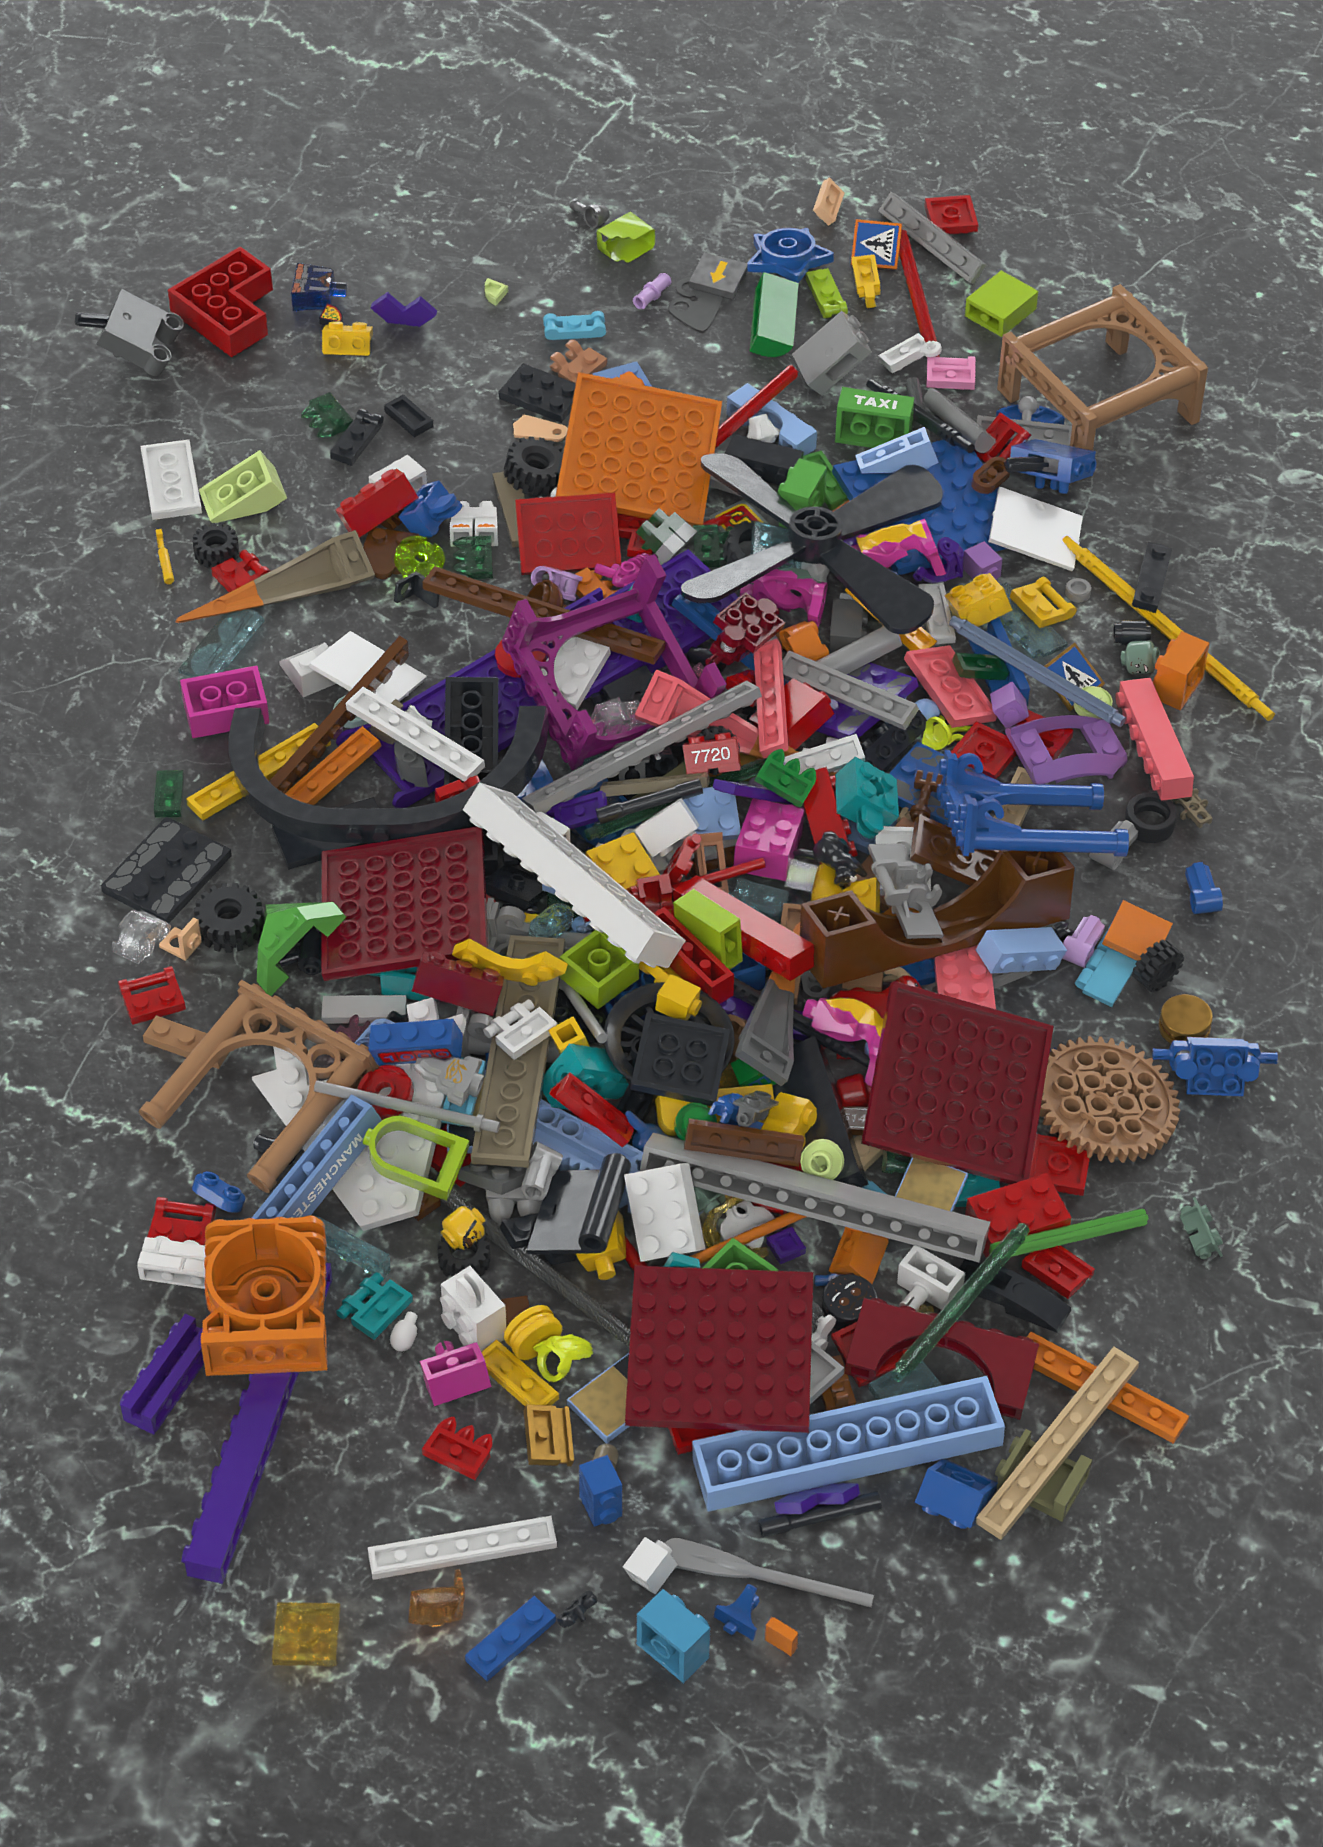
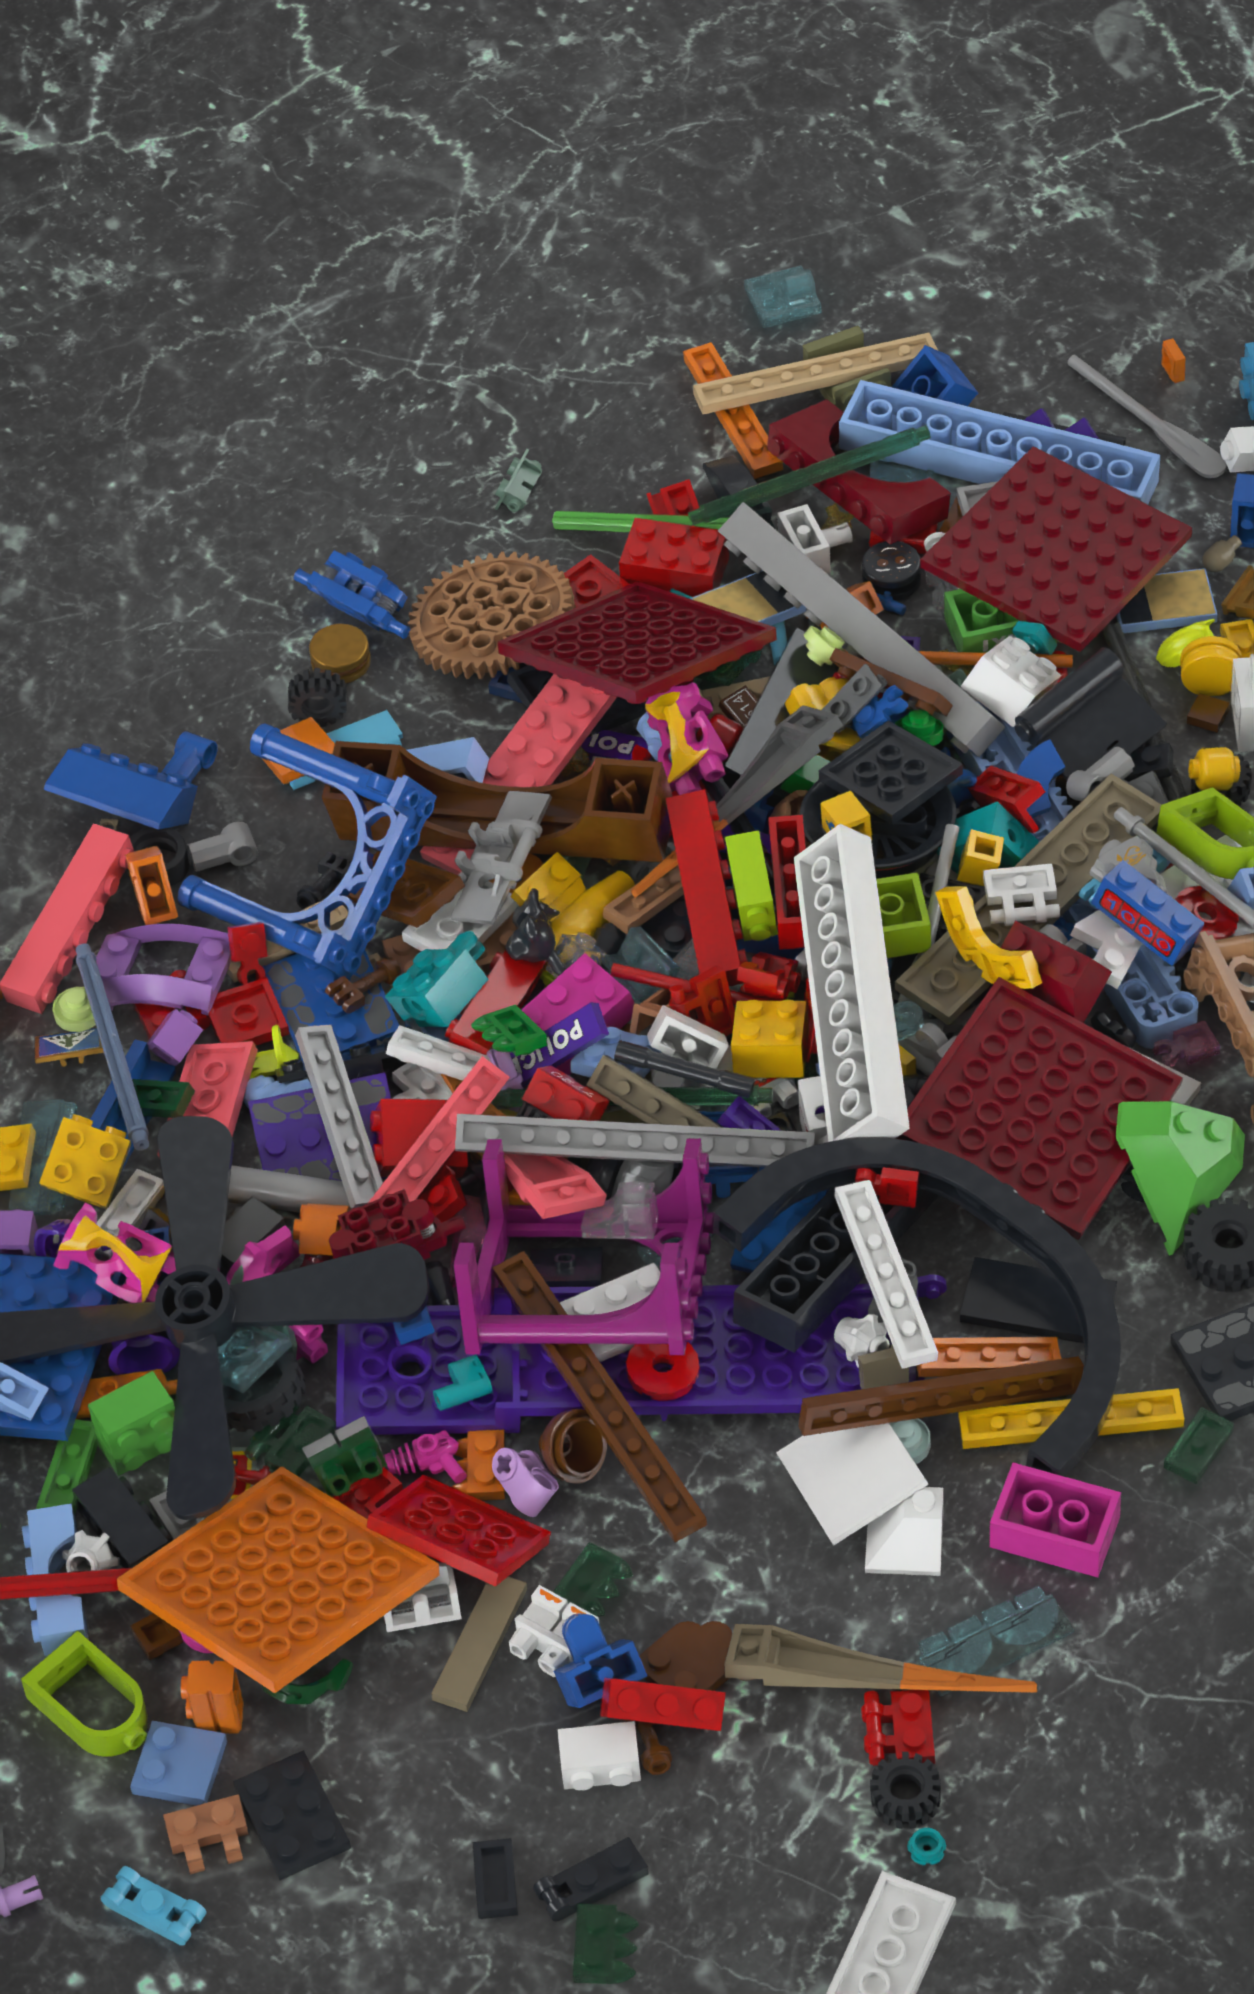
camera: 140 degrees left, 0 degrees up
(164, 558) = (986, 1808): yellow piece -> none
(184, 528) = (930, 1838): none -> teal plate
(243, 490) = (811, 1857): yellowish green slope -> none
(415, 588) = (684, 1566): black bracket -> none
(418, 546) = (648, 1613): clear neon green plate -> none
(534, 427) = (346, 1754): light nougat piece -> none
(538, 454) = (400, 1648): black tyre -> none
(587, 1144) = (1042, 766): none -> blue tile
(697, 369) = (62, 1666): none -> lime window
(738, 1614) = (1191, 395): blue piece -> none
(1017, 770) = (247, 945): none -> red plate
(1124, 777) = (151, 885): none -> orange brick
(1163, 1526) = (783, 296): none -> clear light blue plate
(1215, 830) = (123, 787): none -> blue slope

